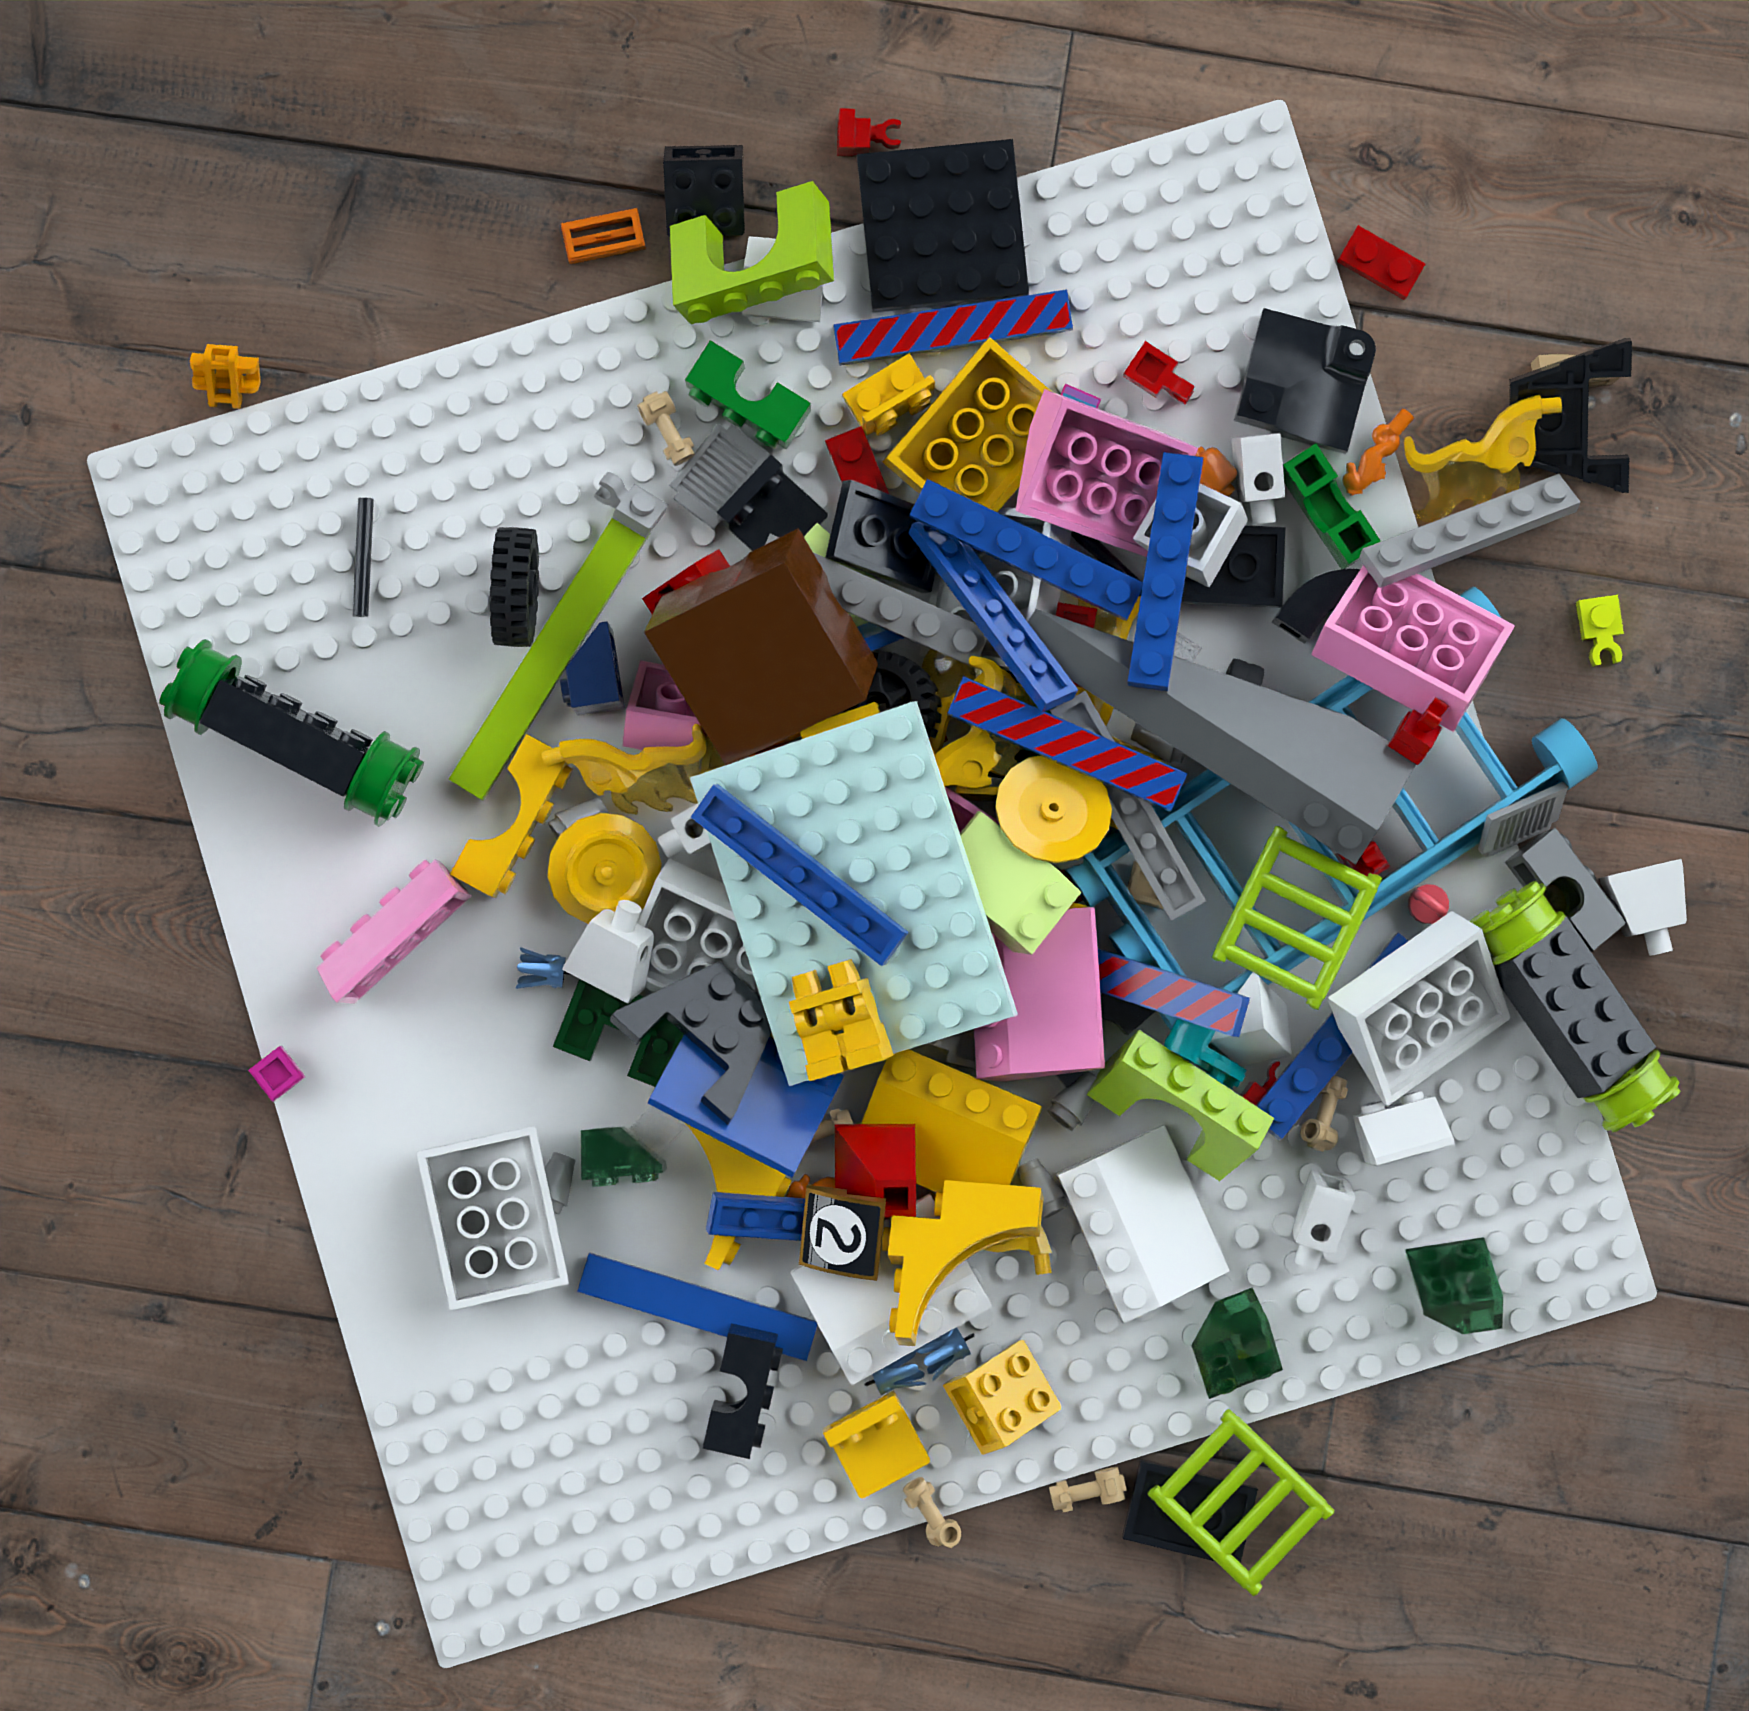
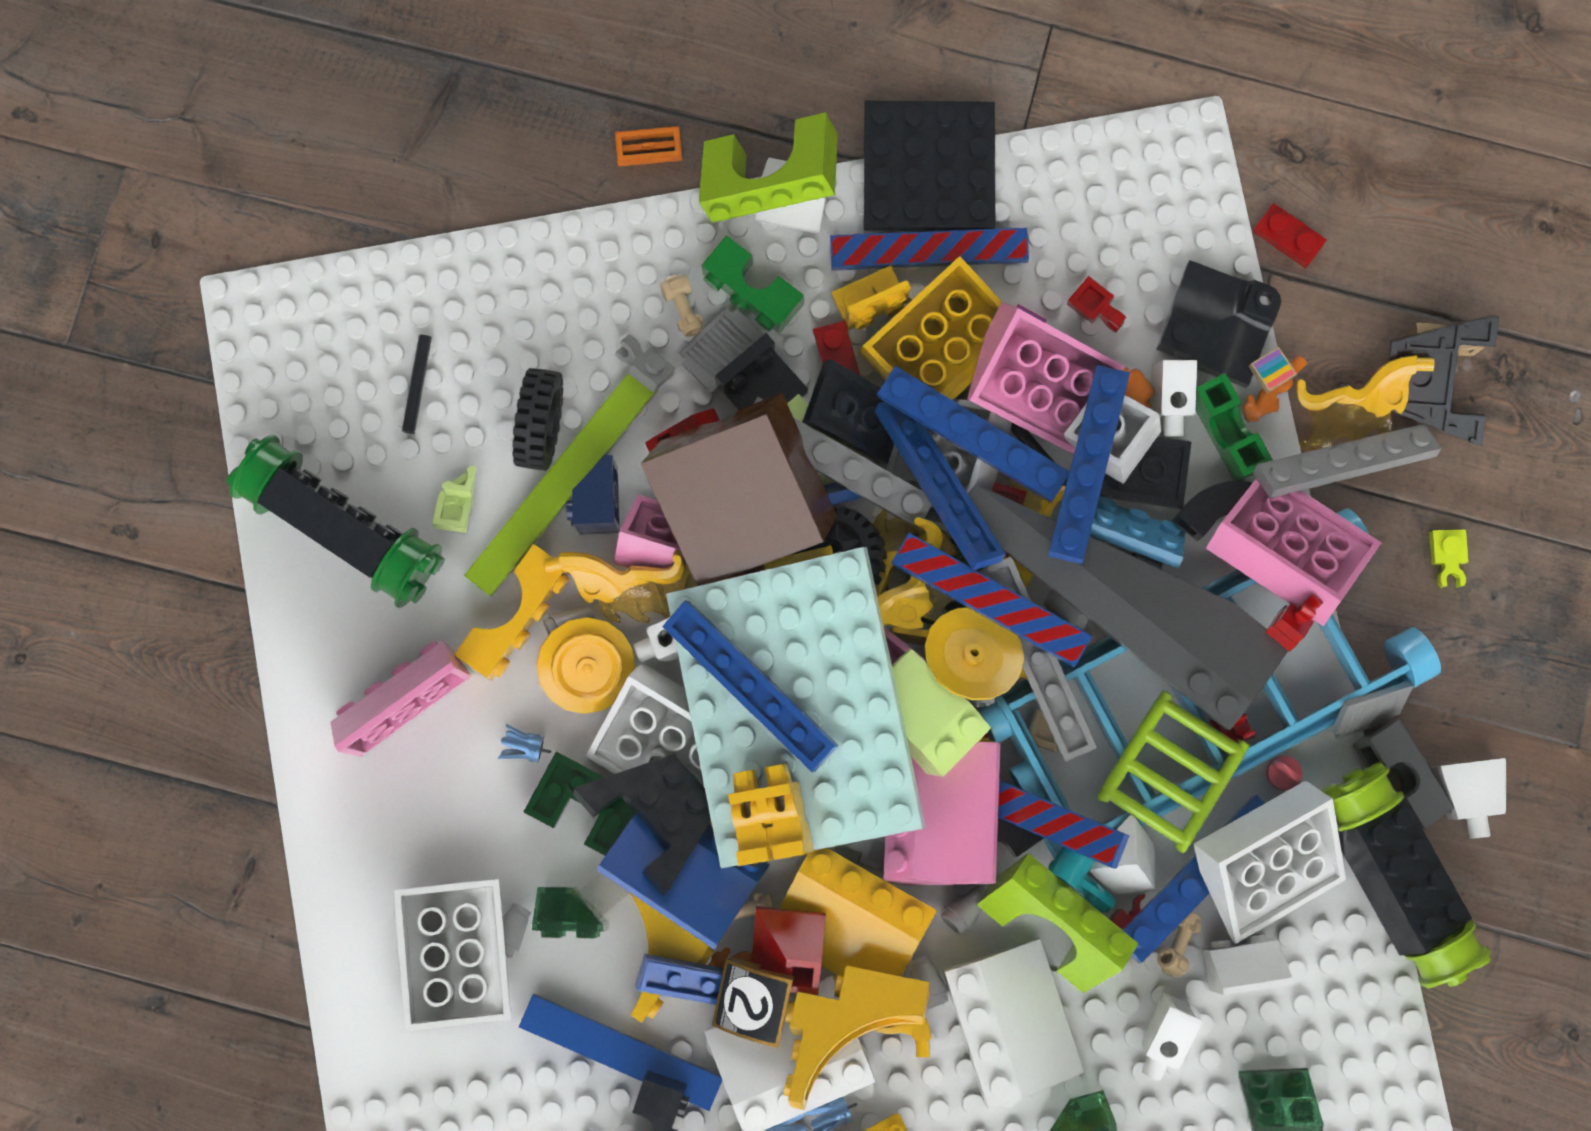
camera: 10 degrees right, 5 degrees down
(228, 374) = (325, 224): light orange piece -> none
(277, 1073) = (286, 809): dark pink tile -> none
(427, 694) = (455, 503): none -> yellowish green slope
(614, 952) = (584, 737): white torso -> none
(705, 183) = (739, 111): black bracket -> none
(856, 133) = (866, 85): red piece -> none
(1231, 642) = (1138, 532): none -> dark azure plate
(1373, 431) = (1272, 370): none -> tile

